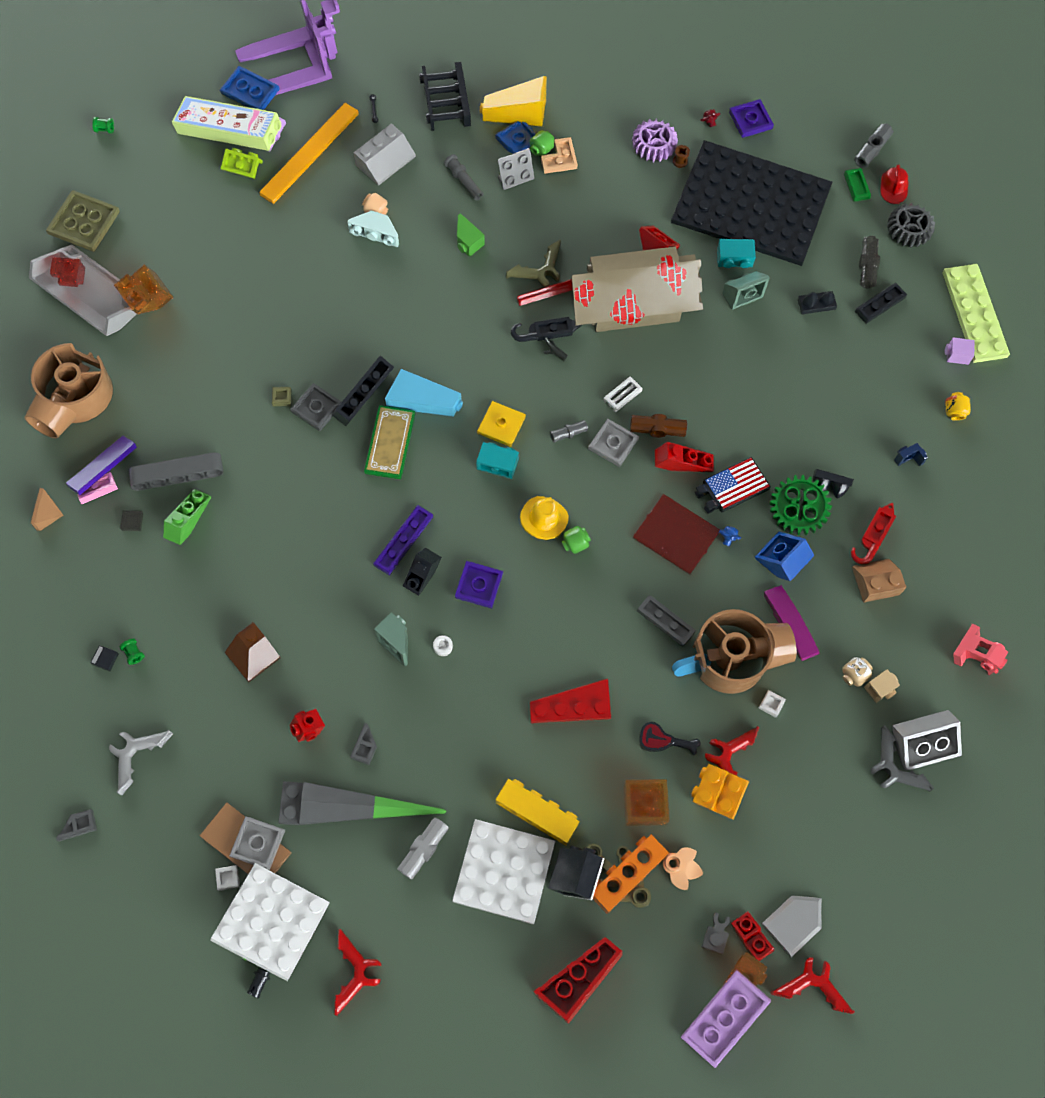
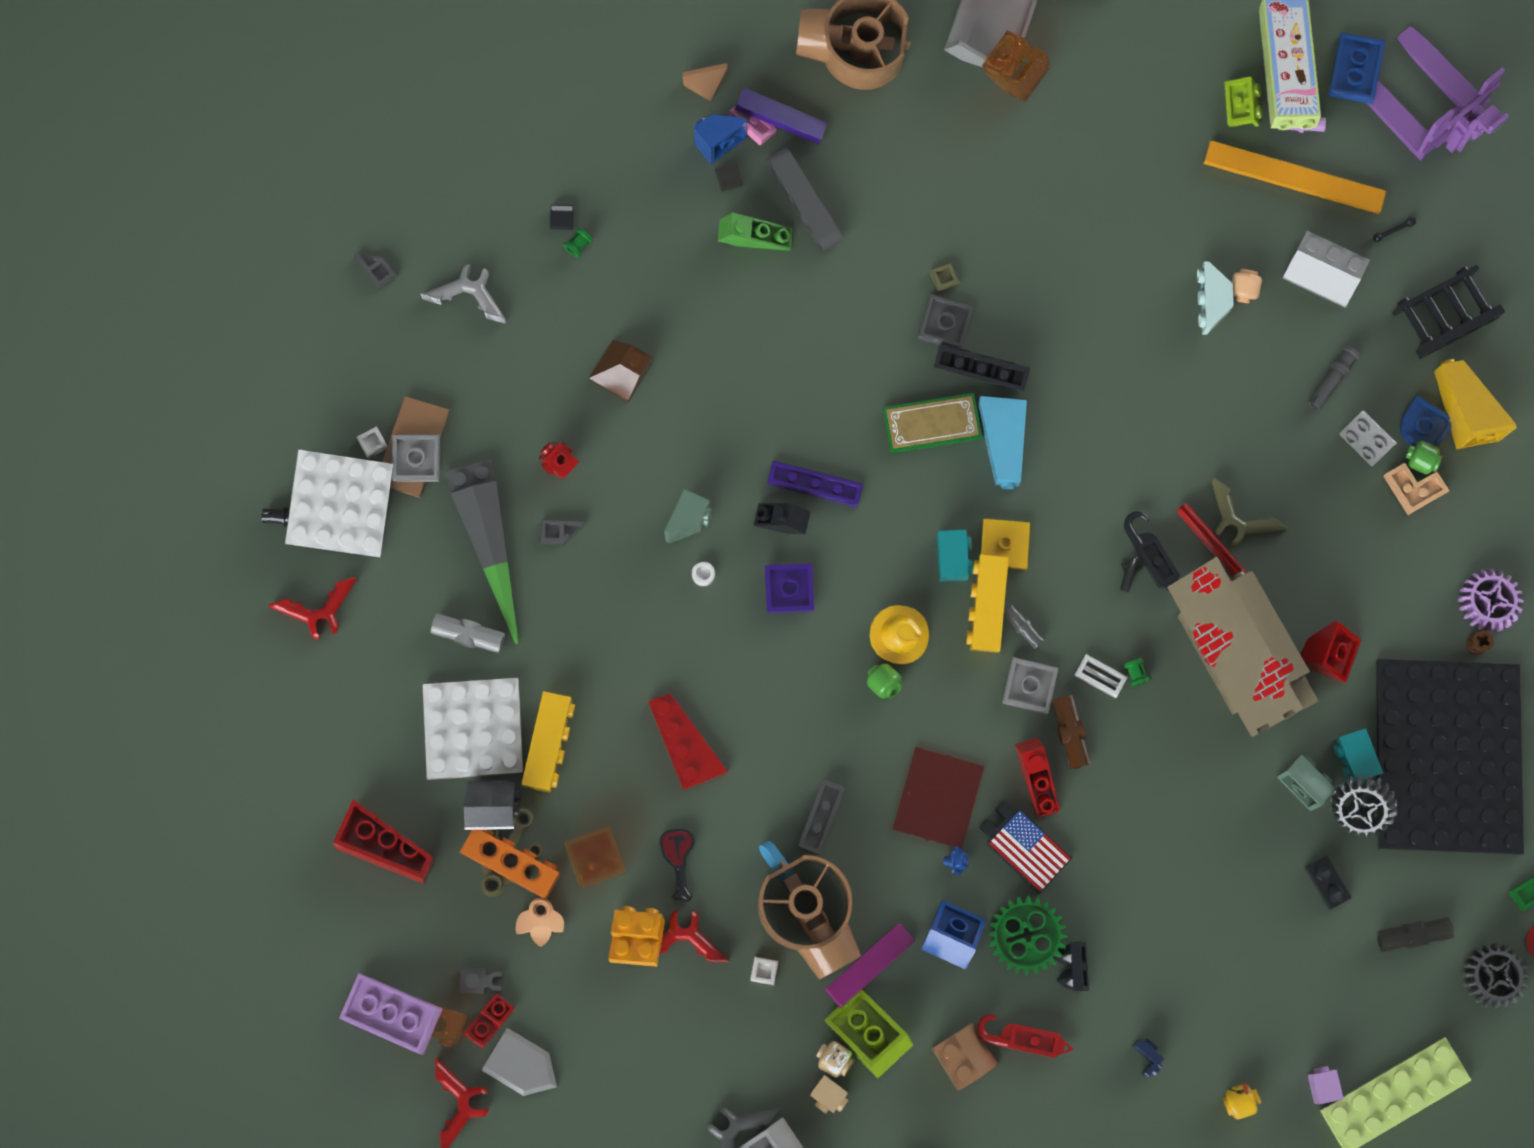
camera: 70 degrees right, 10 degrees up
(95, 513) = (719, 135): none -> blue slope
(468, 236) = (1246, 413): bright green slope -> none
(543, 446) = (988, 603): none -> yellow brick
(629, 368) = (1137, 672): none -> green bush
(776, 247) = (1359, 817): none -> dark grey gear
(843, 640) = (869, 1033): none -> lime slope
(880, 303) = (1361, 966): black tile -> none

